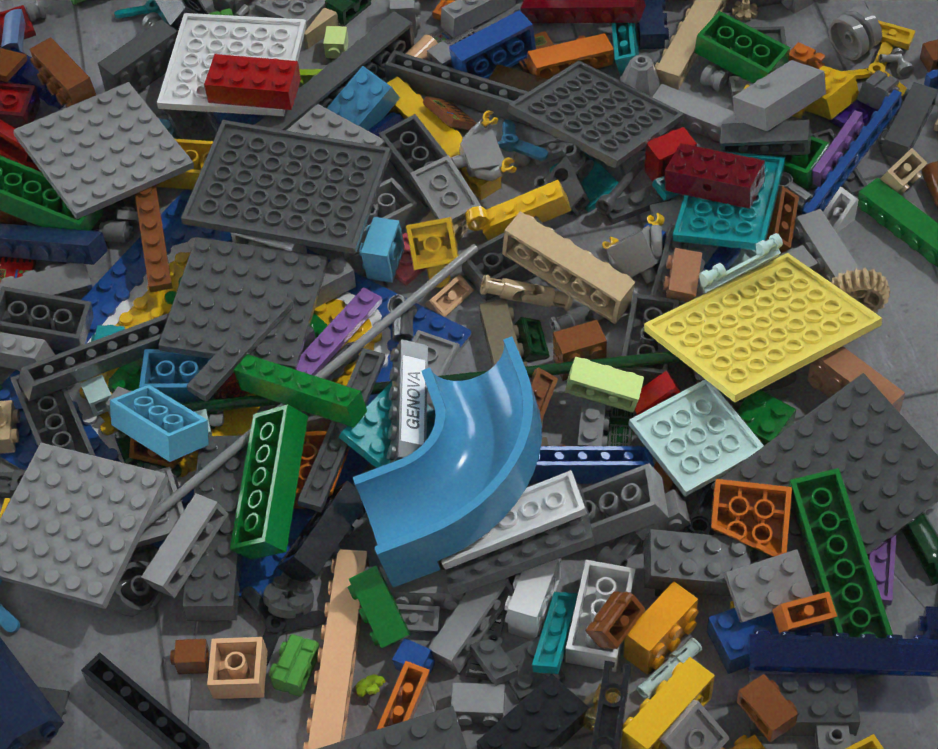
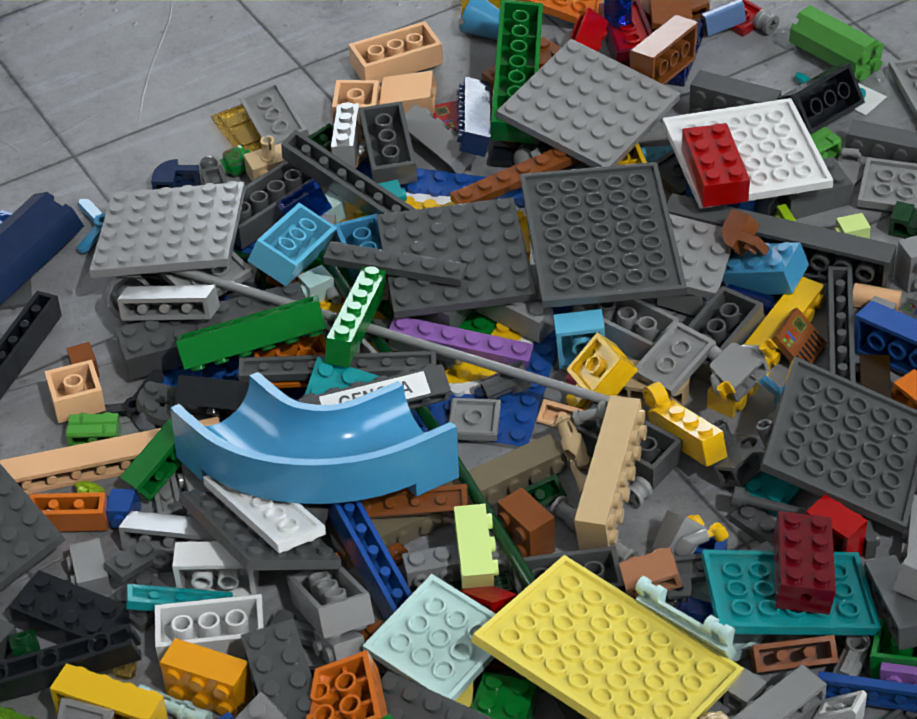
camera: 70 degrees right, 10 degrees down
(95, 402) = (308, 195): none -> clear blue brick
(317, 29) = (874, 212): tan slope -> none
(332, 100) = (740, 233): none -> dark orange brick
(490, 267) = (589, 414): none -> light grey piece
(615, 620) = (184, 624): dark orange brick -> none

